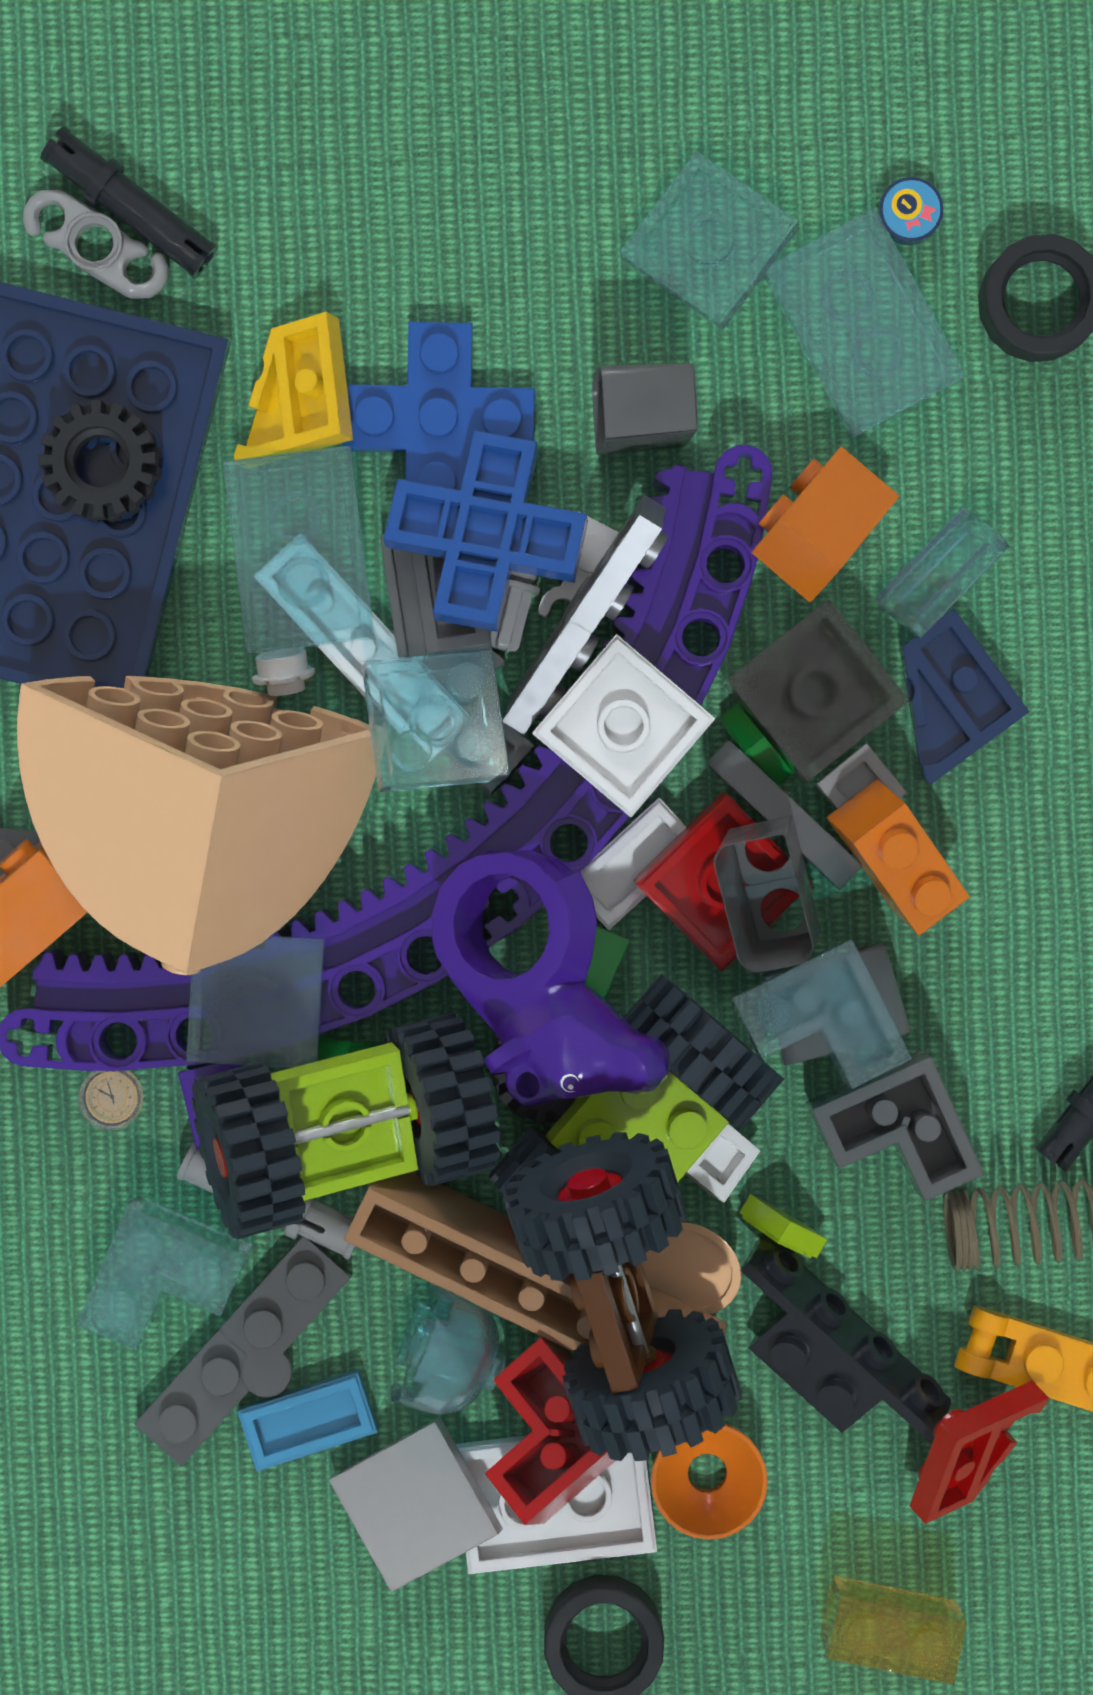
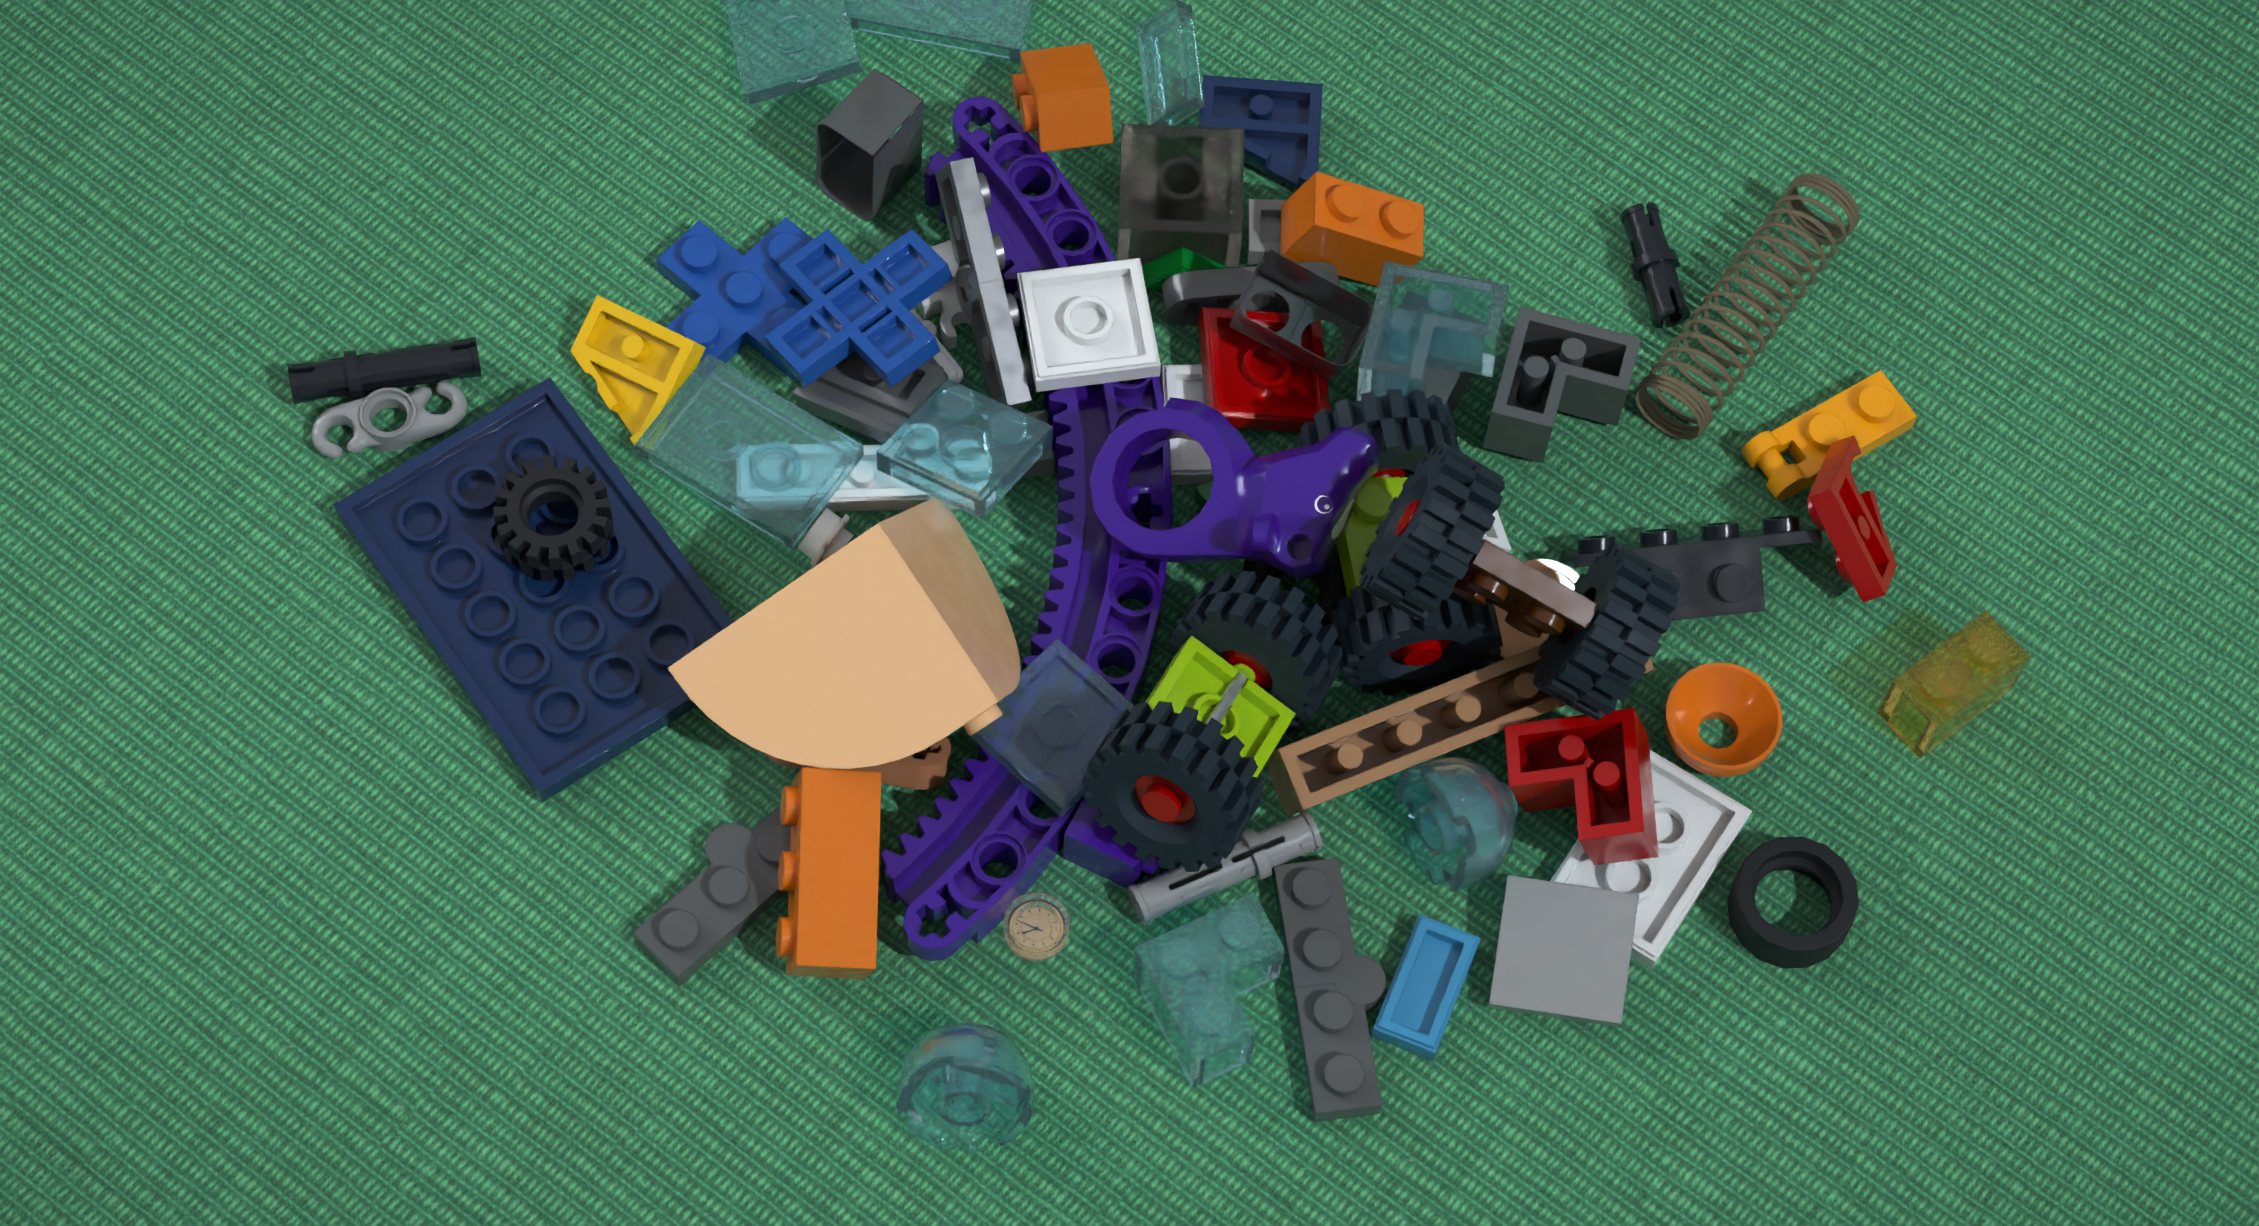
camera: 60 degrees left, 25 degrees down
(782, 1227) = (1562, 523): lime tile -> none

